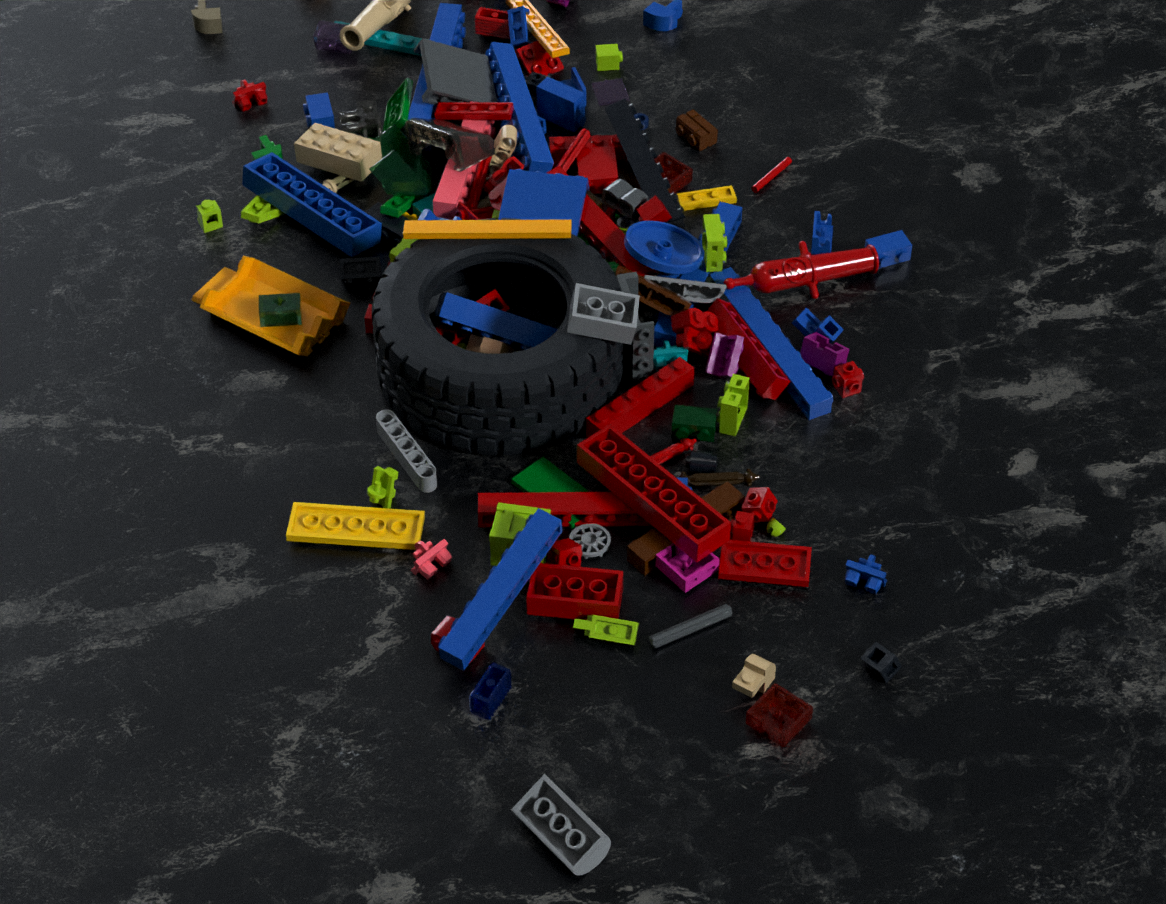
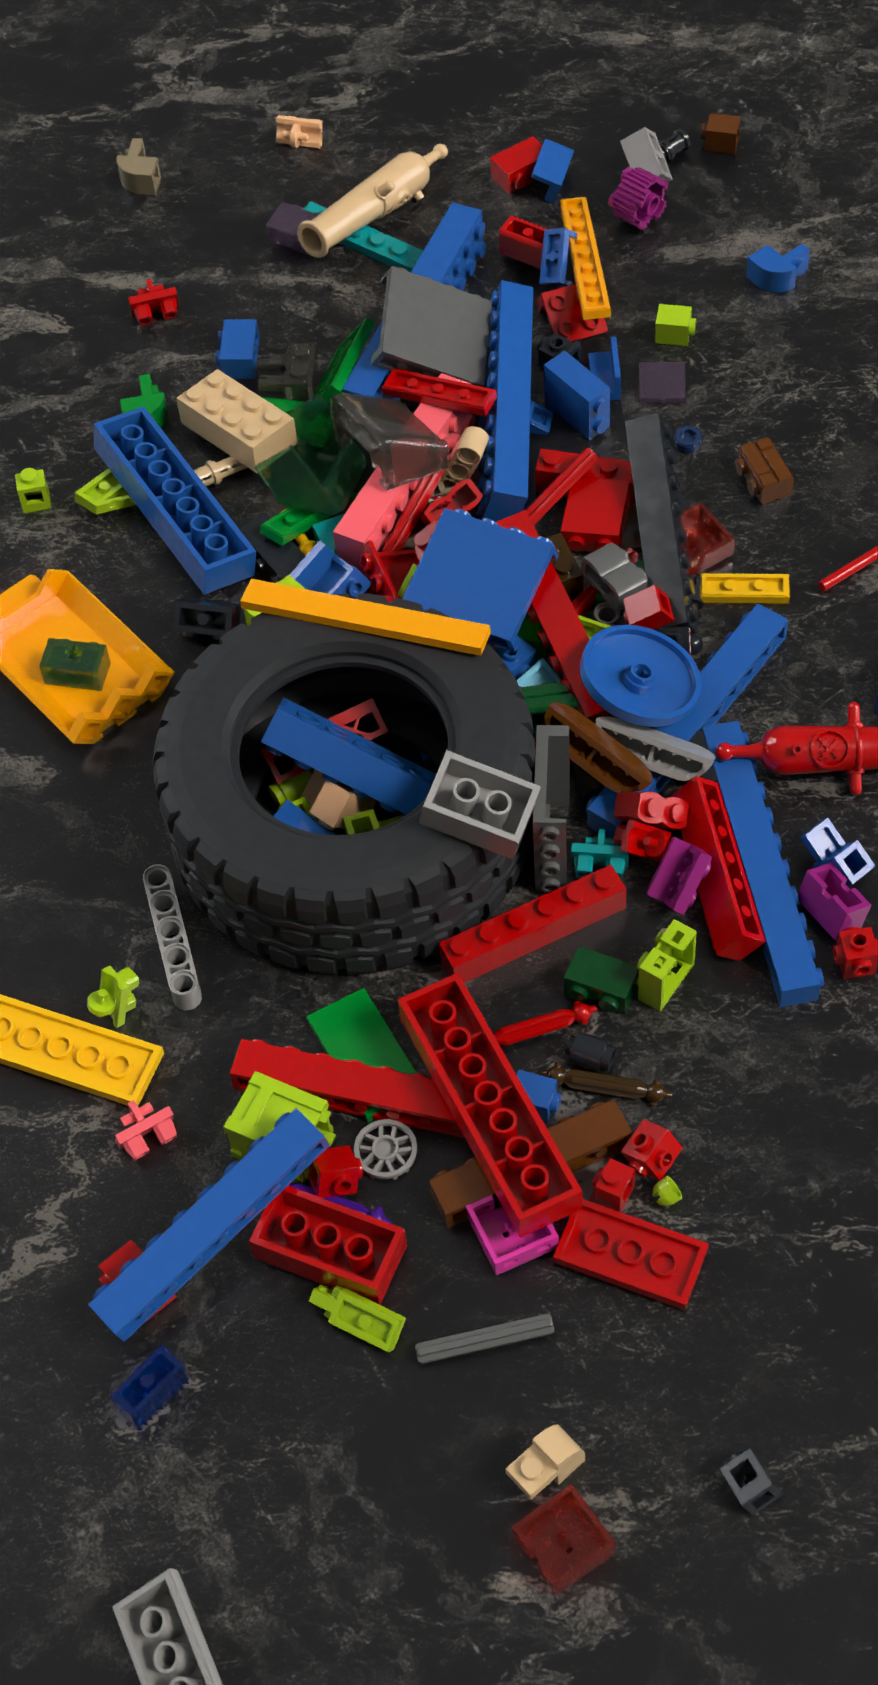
camera: 20 degrees right, 10 degrees up
(714, 242) = (718, 681): lime piece -> none
(865, 570) = (761, 1305): blue hips -> none

